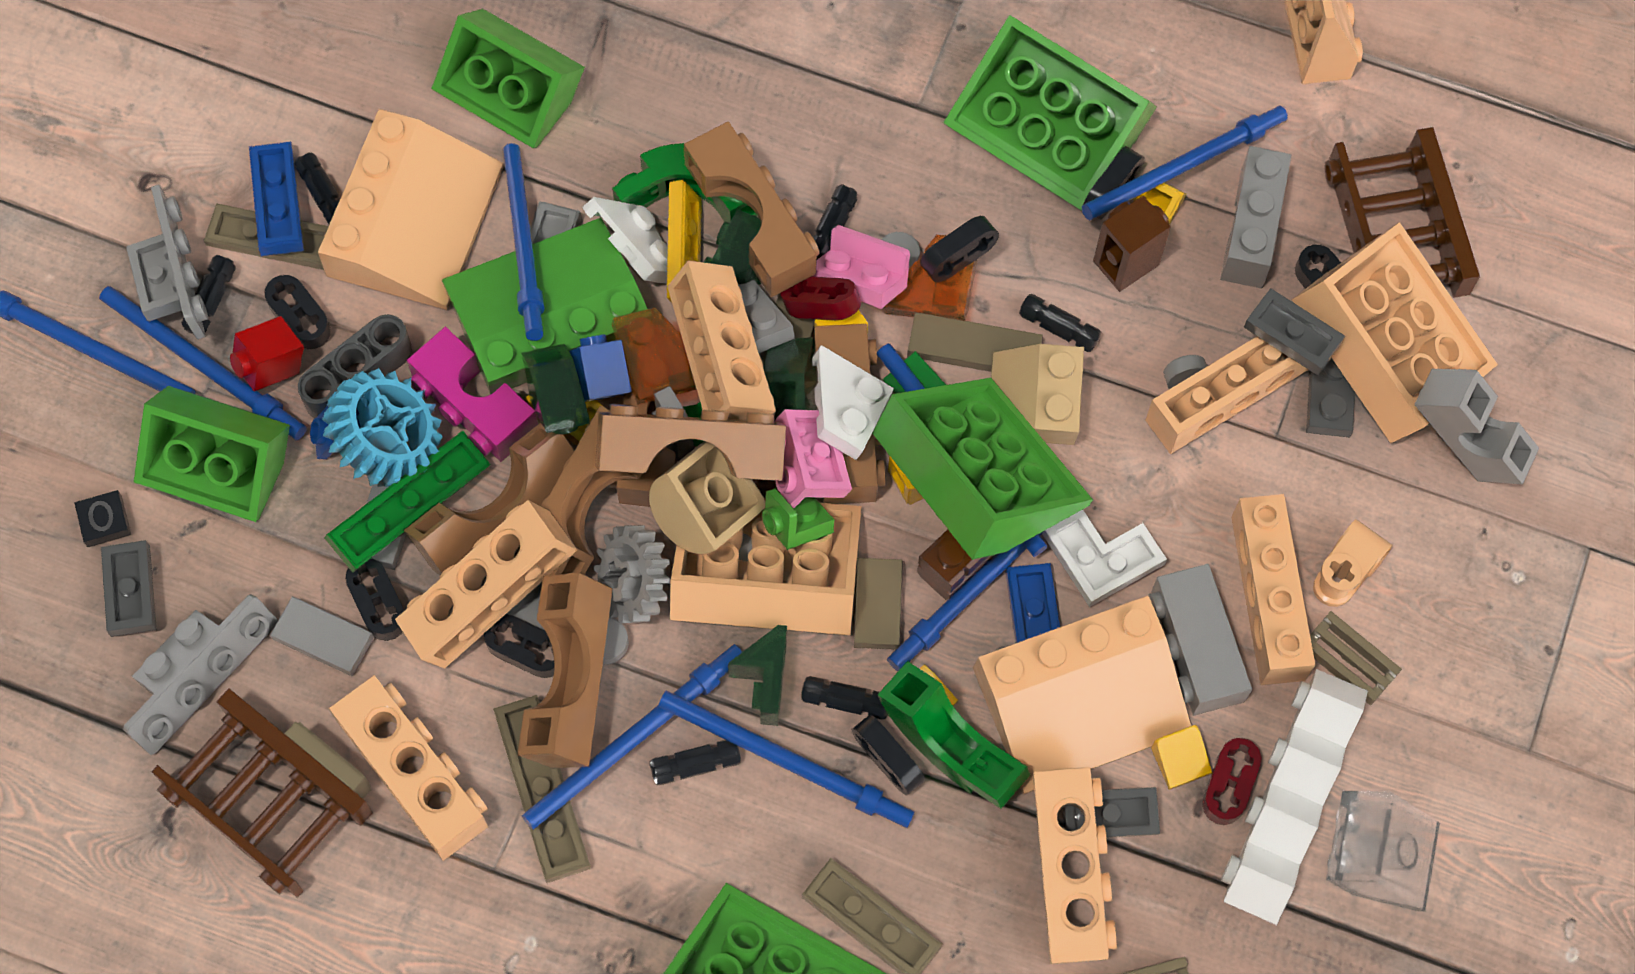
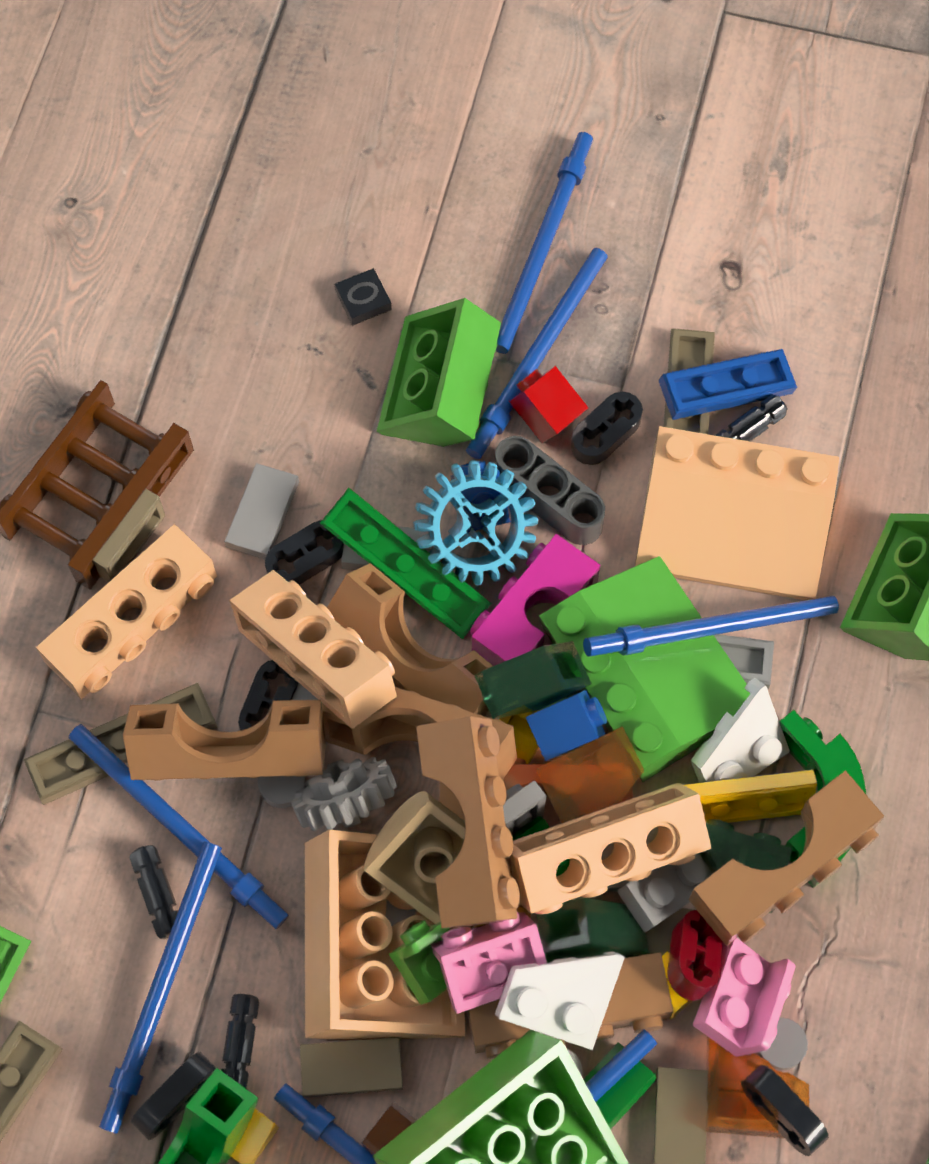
camera: 85 degrees right, 0 degrees up
(128, 588) = (291, 330): dark grey plate -> none
(161, 271) = (628, 295): light grey bracket -> none
(193, 667) = (217, 401): light grey bracket -> none
(213, 287) = (611, 344): black axle -> none
(765, 663) = (267, 955): clear green slope -> none
(834, 214) = (809, 962): black axle -> none

